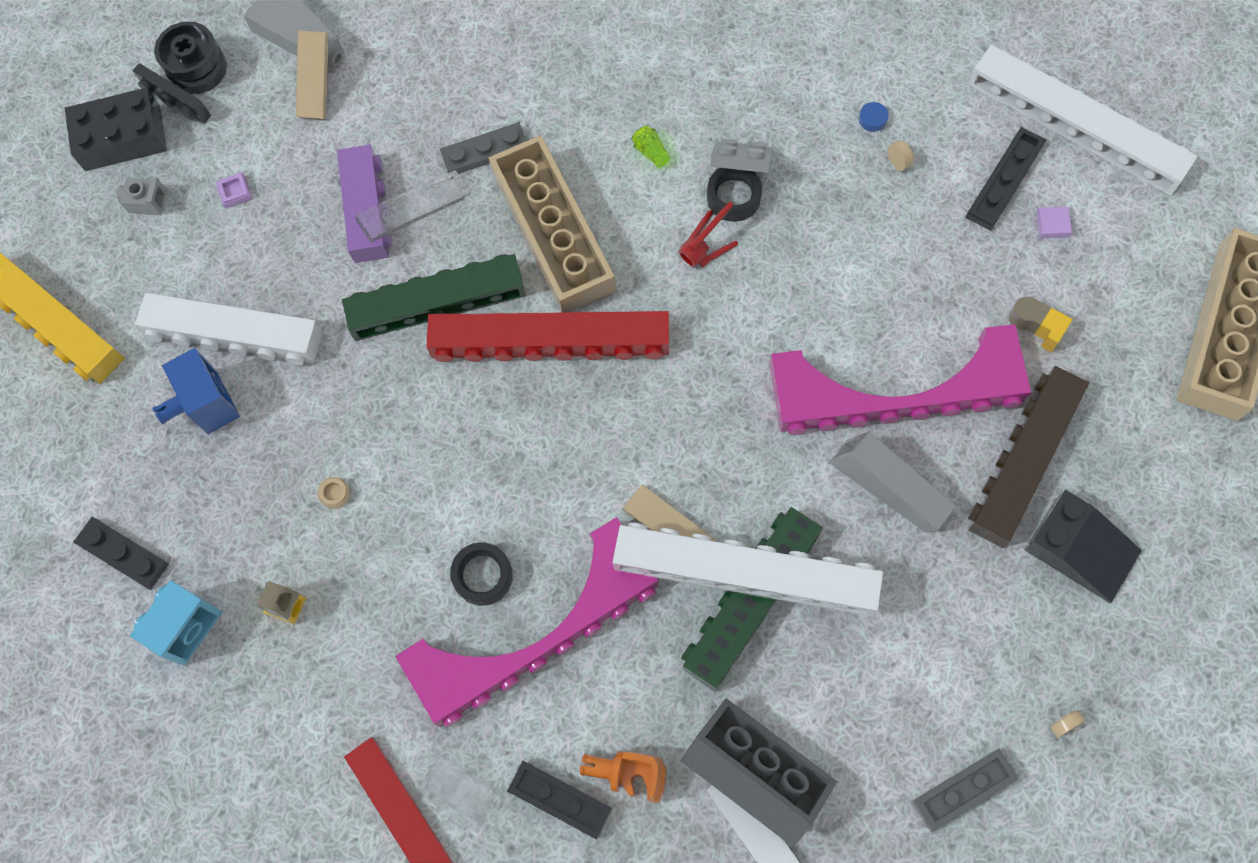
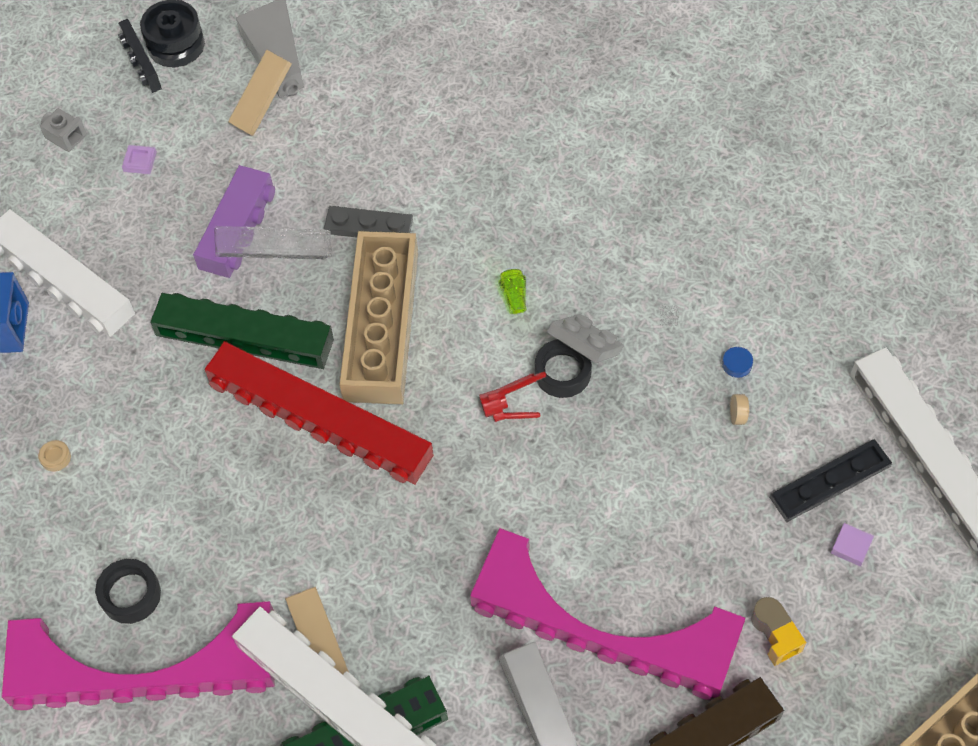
camera: 25 degrees right, 10 degrees down
(115, 129) = (76, 64): black brick -> none

